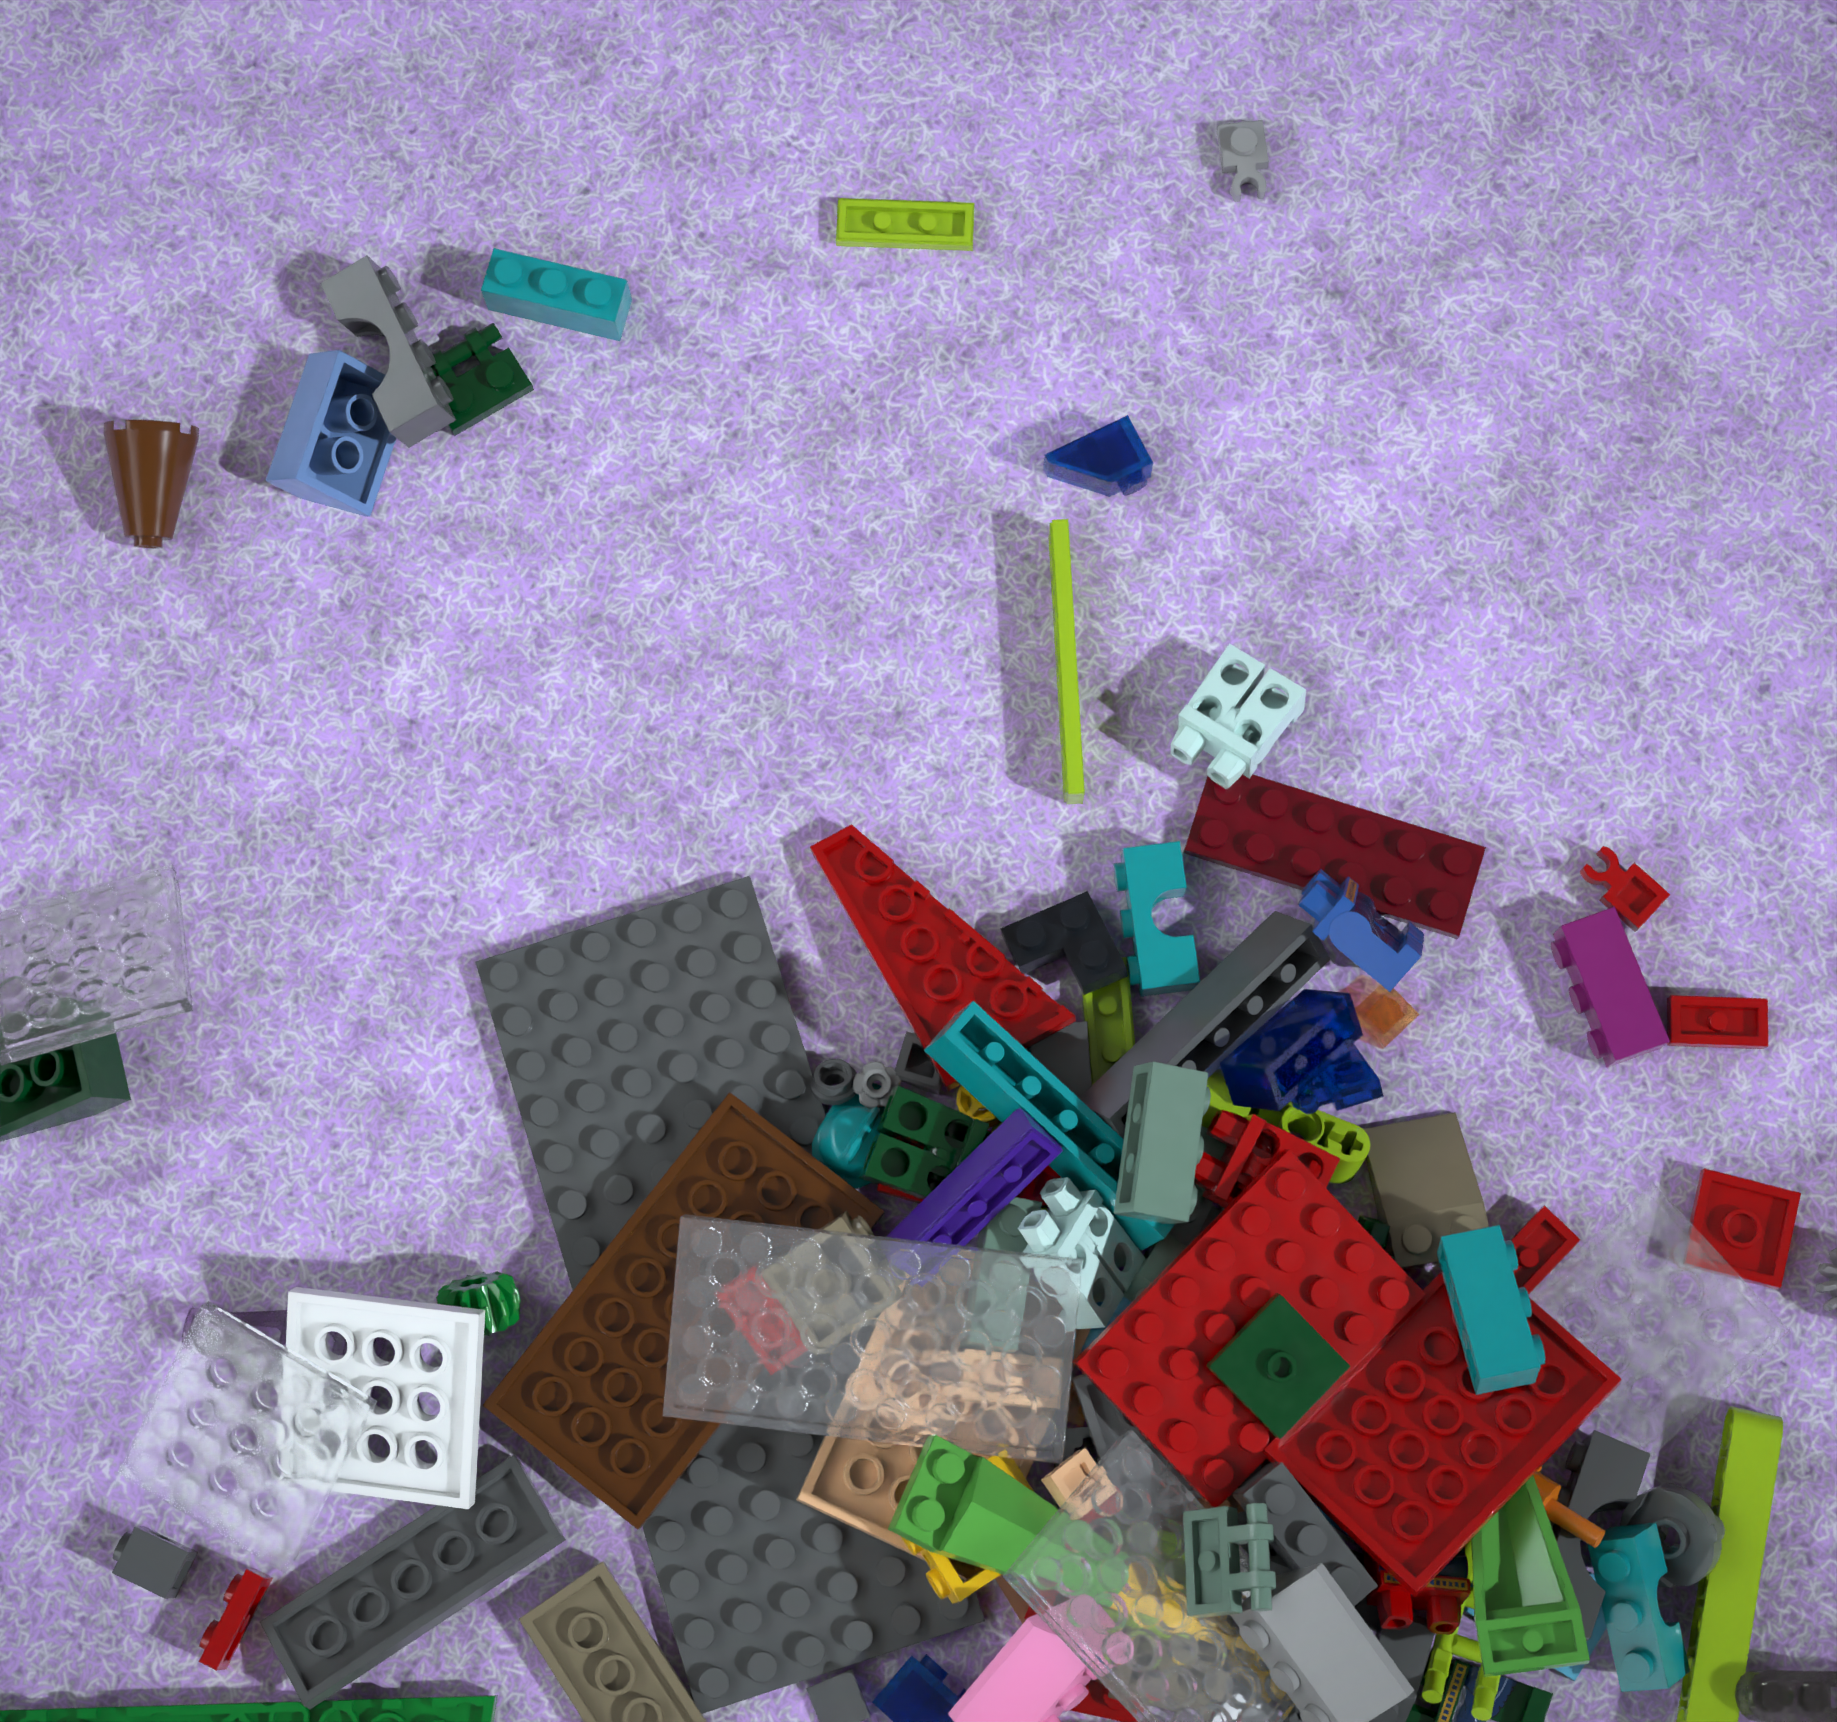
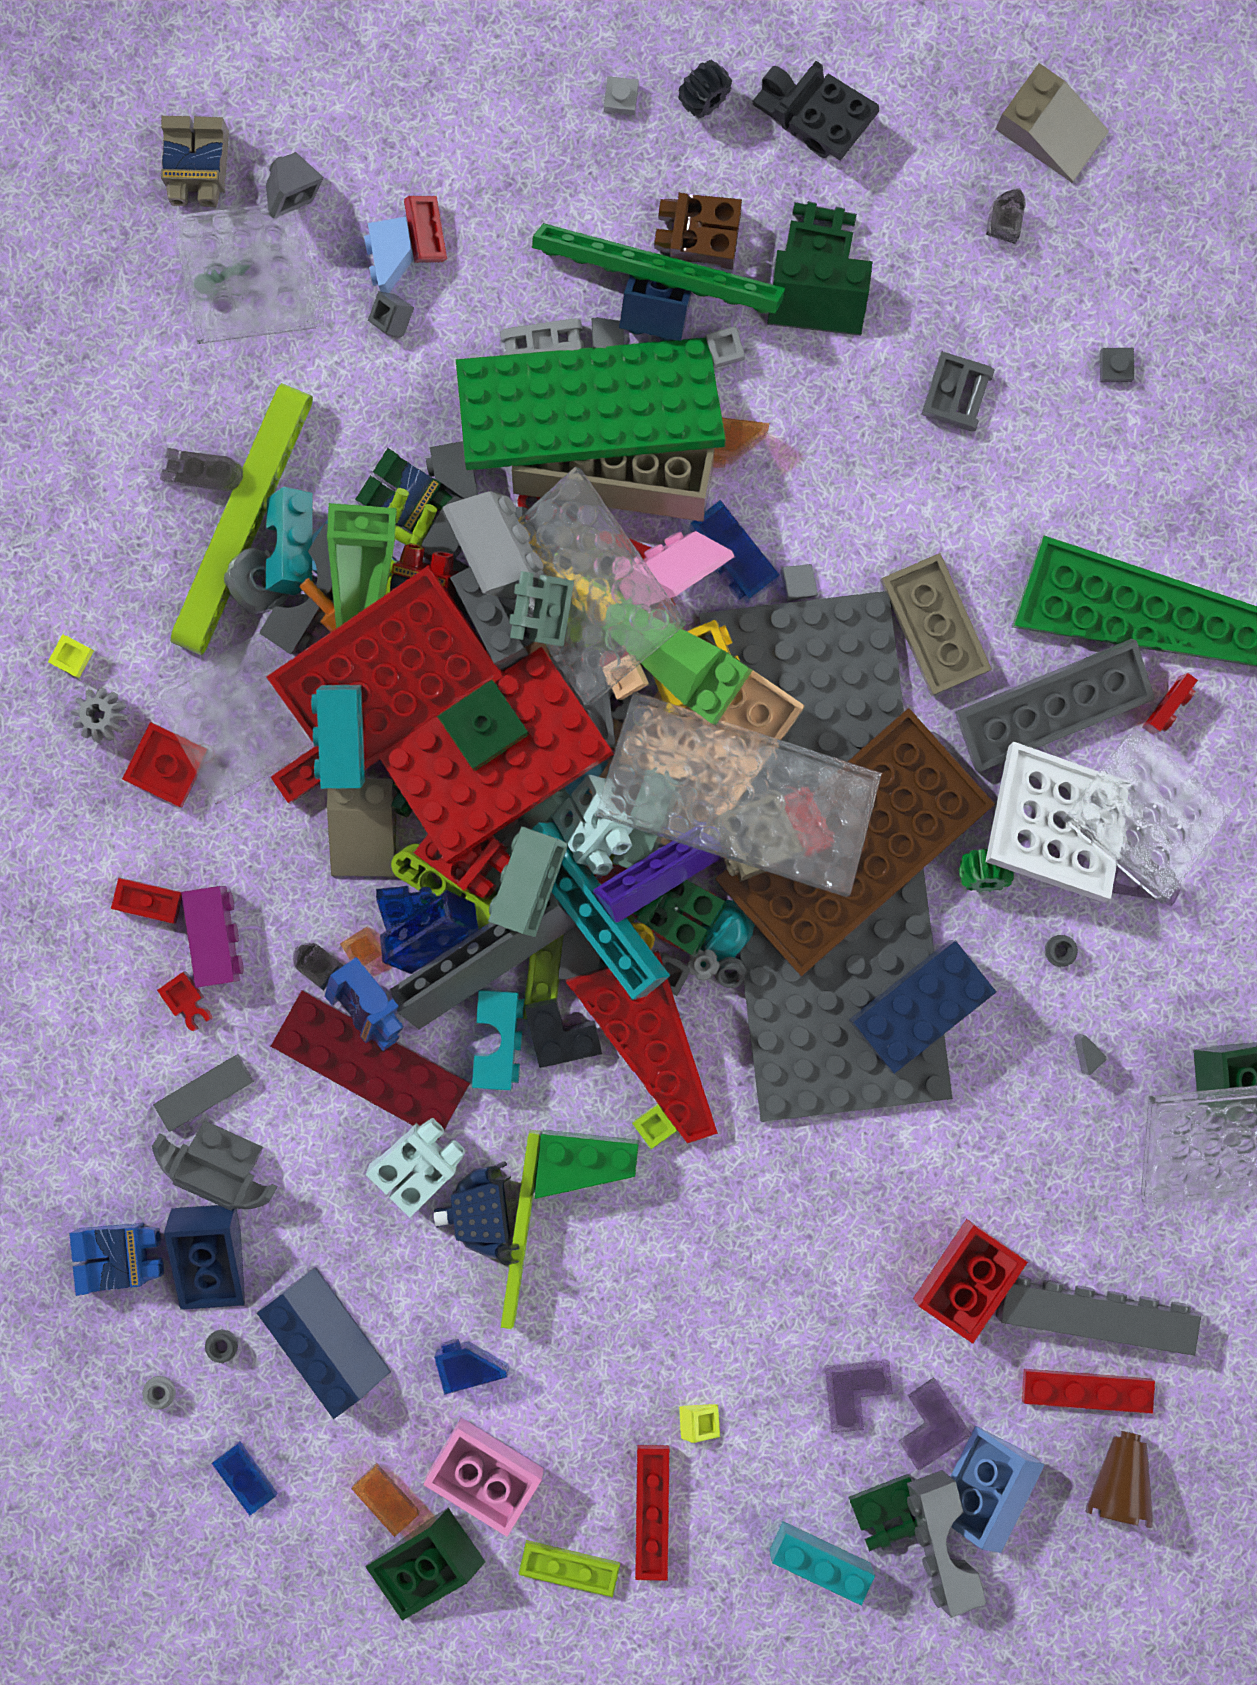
camera: 170 degrees left, 10 degrees up
(153, 1561) = (1217, 749): dark grey brick -> none
(216, 593) = (1088, 1391): none -> red plate
(218, 697) = (1101, 1316): none -> dark grey brick
(283, 1061) = (1088, 1054): none -> dark grey slope
(332, 1207) = (1070, 946): none -> dark grey plate
(411, 708) = (969, 1281): none -> red slope
(418, 503) = (941, 1429): none -> clear purple plate
(543, 1082) = (922, 1006): none -> dark blue brick
(558, 539) = (847, 1385): none -> clear purple plate
(760, 448) = (699, 1422): none -> neon yellow slope
(804, 317) = (652, 1512): none -> red plate
(904, 839) = (654, 1126): none -> lime plate
(997, 770) = (582, 1161): none -> green wedge
(1048, 318) = (484, 1477): none -> bright pink brick
(1103, 192) = (426, 1564): none -> dark green slope
(1128, 668) = (480, 1214): none -> dark blue torso
(1178, 265) = (385, 1499): none -> clear orange plate
(1244, 152) = (322, 1575): light grey plate -> none
(1312, 454) = (324, 1342): none -> dark blue slope
(1380, 257) = (244, 1478): none -> clear blue plate
(1446, 977) = (315, 963): none -> clear smoke plate
(1460, 411) = (212, 1350): none -> dark grey plate
(1506, 540) = (206, 1256): none -> dark blue slope
(1523, 661) = (215, 1167): none -> dark grey plate
(1530, 333) = (149, 1392): none -> light grey plate
(1566, 764) = (203, 1093): none -> dark grey tile
(1636, 513) = (126, 1254): none -> blue hips

